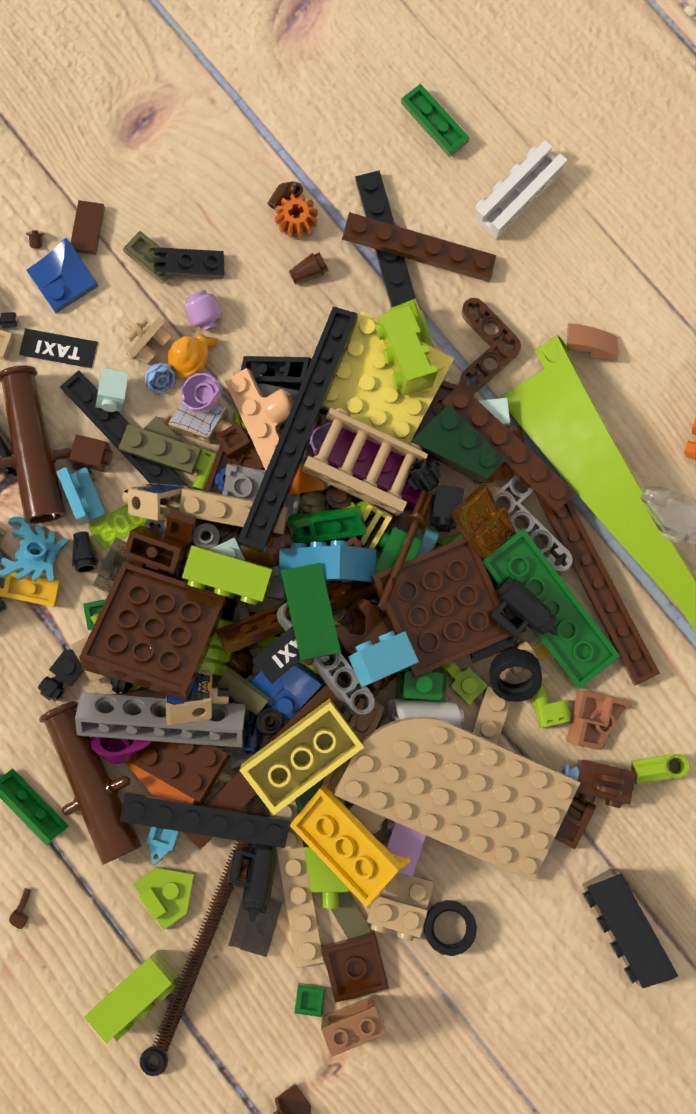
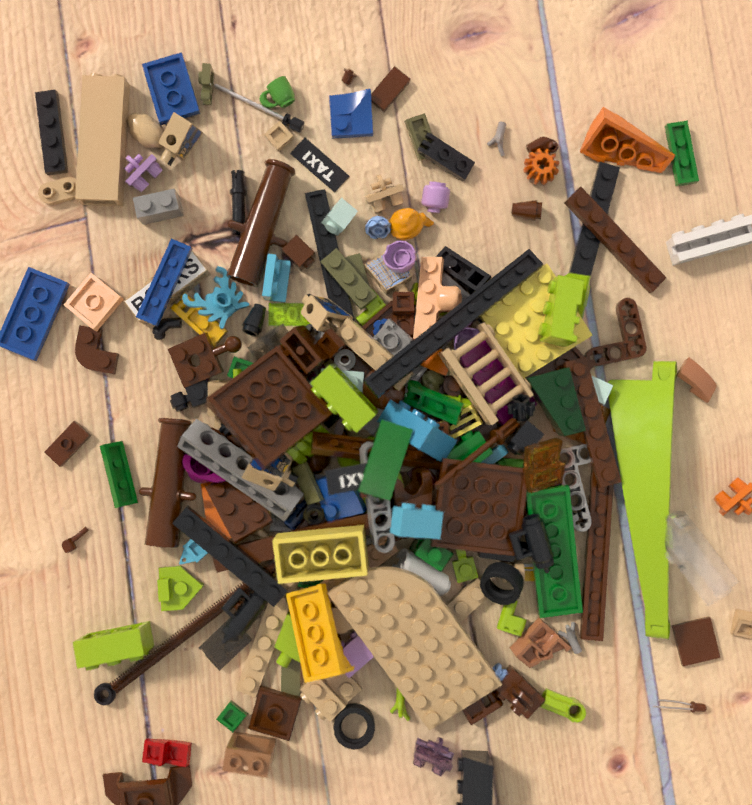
camera: 25 degrees right, 5 degrees up
(61, 627) = (209, 361): none -> reddish brown plate
(233, 211) = (498, 138): none -> light grey bar
(260, 1084) = (166, 752): none -> red slope
(364, 145) = (622, 143): none -> orange wedge
(486, 874) = (400, 705): none -> lime bar
(552, 904) = (434, 754): none -> hips
(625, 691) = (571, 637): none -> light grey bar

